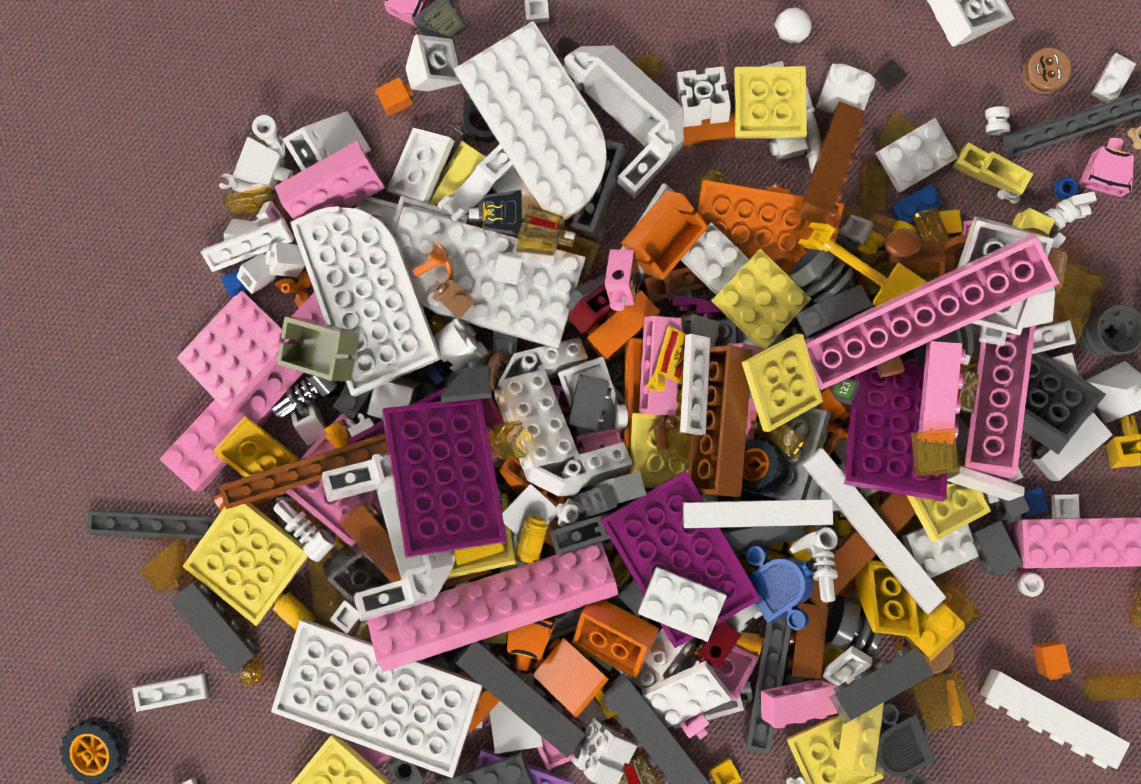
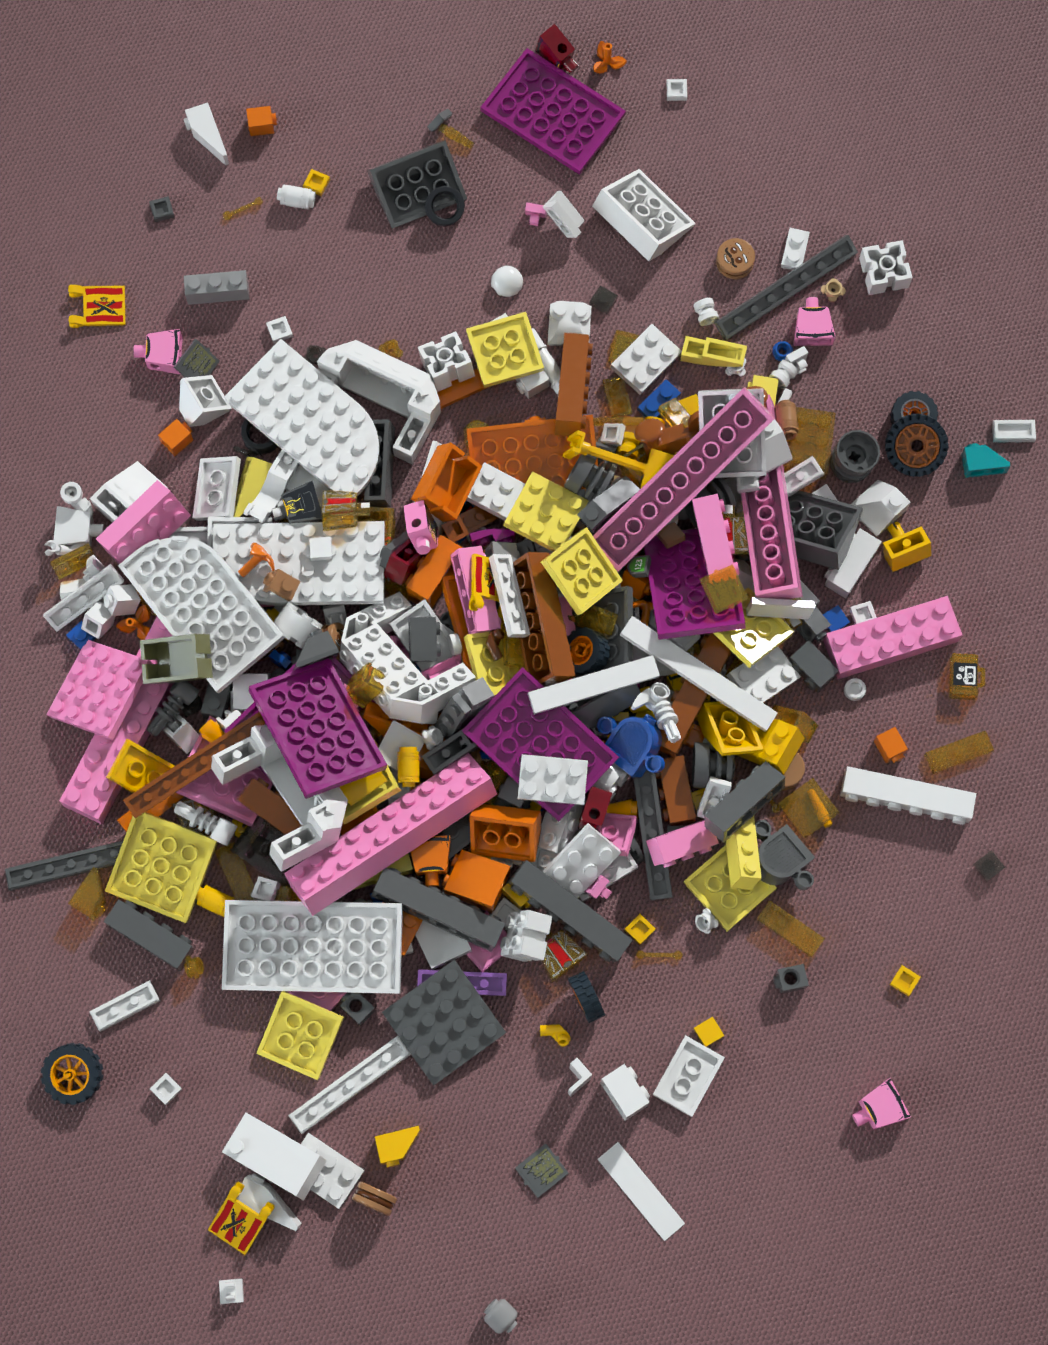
camera: 20 degrees left, 10 degrees down
(572, 331) = (392, 589): none -> clear yellow plate

